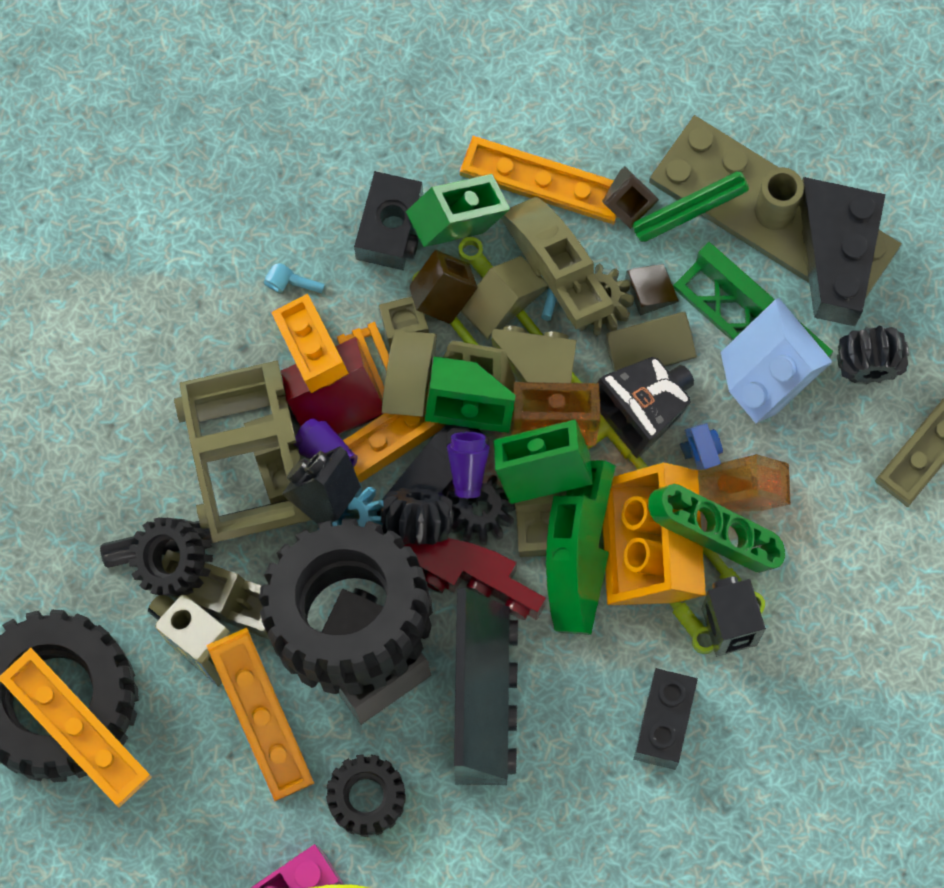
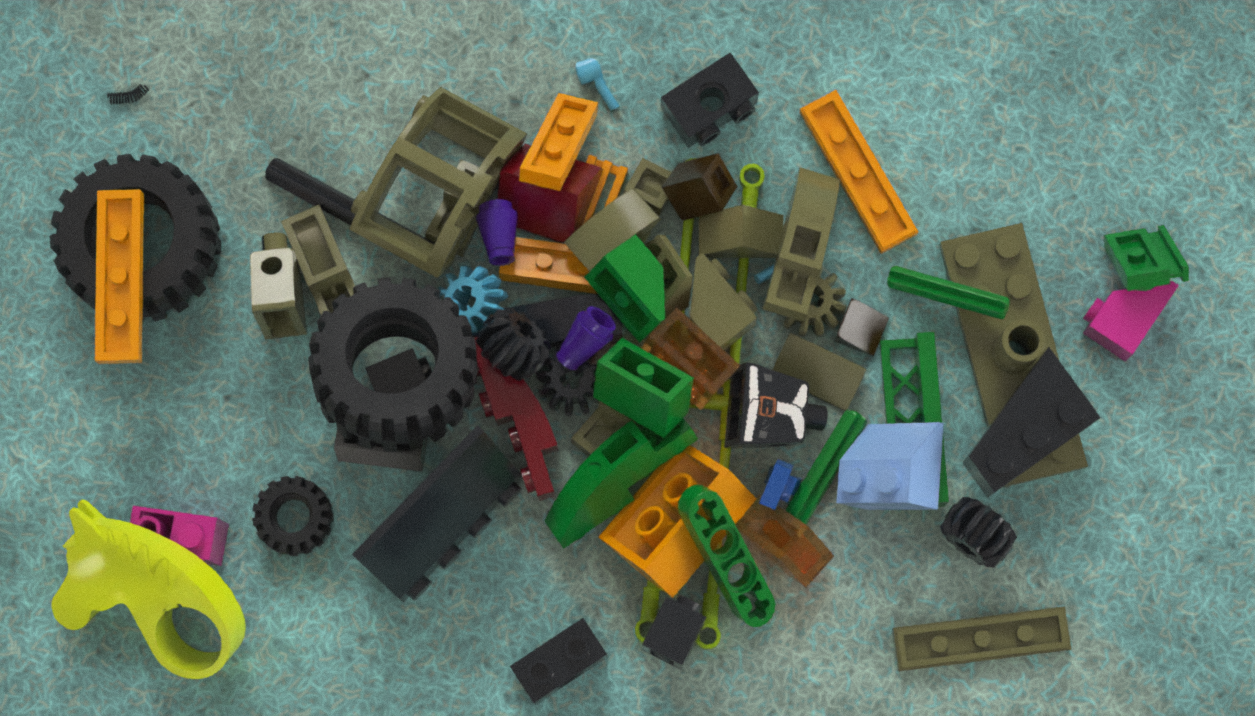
camera: 45 degrees right, 5 degrees up
(150, 550) = (296, 199): black tyre -> none
(260, 714) = (266, 386): light orange tile -> none
(323, 485) = (457, 259): black slope -> none
(457, 210) = (764, 138): green brick -> none
(629, 197) = (909, 243): dark brown slope -> none
(719, 403) = (826, 466): none -> green axle
(805, 62) = (1145, 258): none -> green plate
(830, 116) = (1126, 318): none -> dark pink slope

